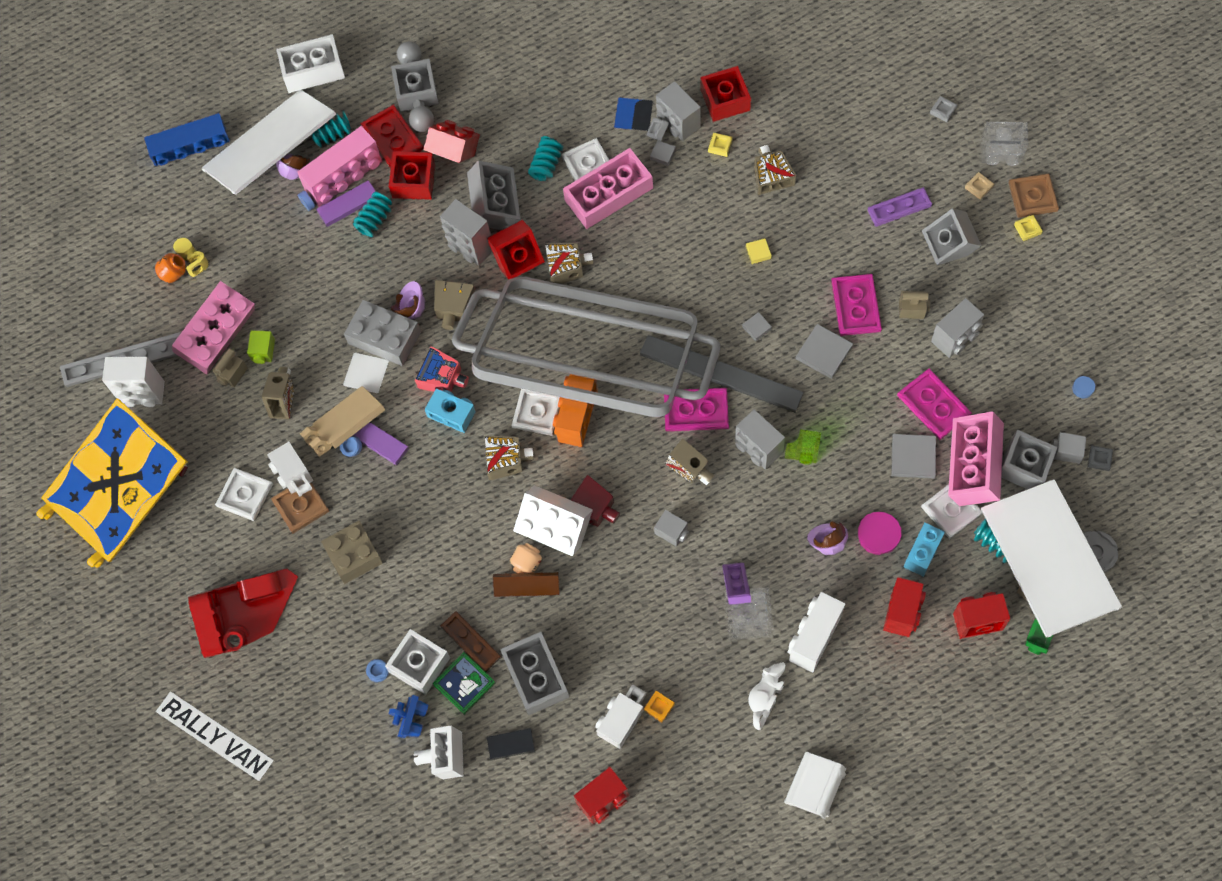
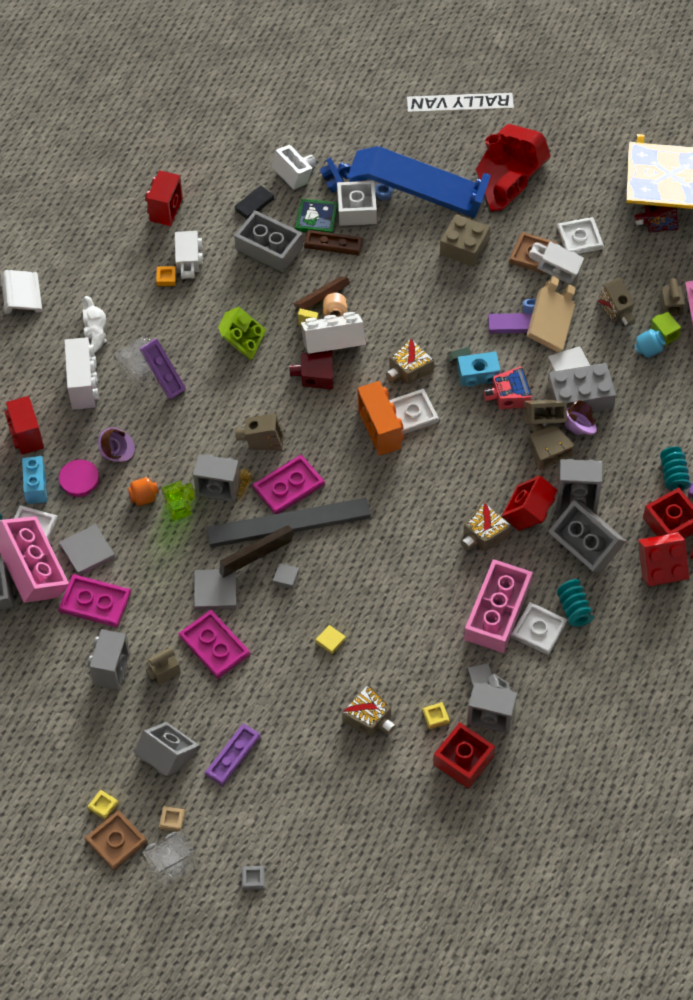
camera: 140 degrees right, 10 degrees down
(287, 338) = (650, 343): none -> medium azure head
(341, 645) = (419, 179): none -> blue panel
(435, 322) = (540, 411): none -> dark tan torso
(455, 435) = (457, 353): none -> sand green tile
(559, 562) = (305, 314): none -> light yellow tile
(576, 393) = (480, 393): light grey bar -> none
(633, 114) = (537, 700): sticker -> none
(634, 587) = (241, 331): none -> lime slope
(671, 528) = (241, 386): light grey brick -> none
(728, 438) = (246, 478): none -> clear yellow hand
(770, 354) = (255, 551): none -> dark brown tile
(831, 476) = (143, 491): none -> orange head

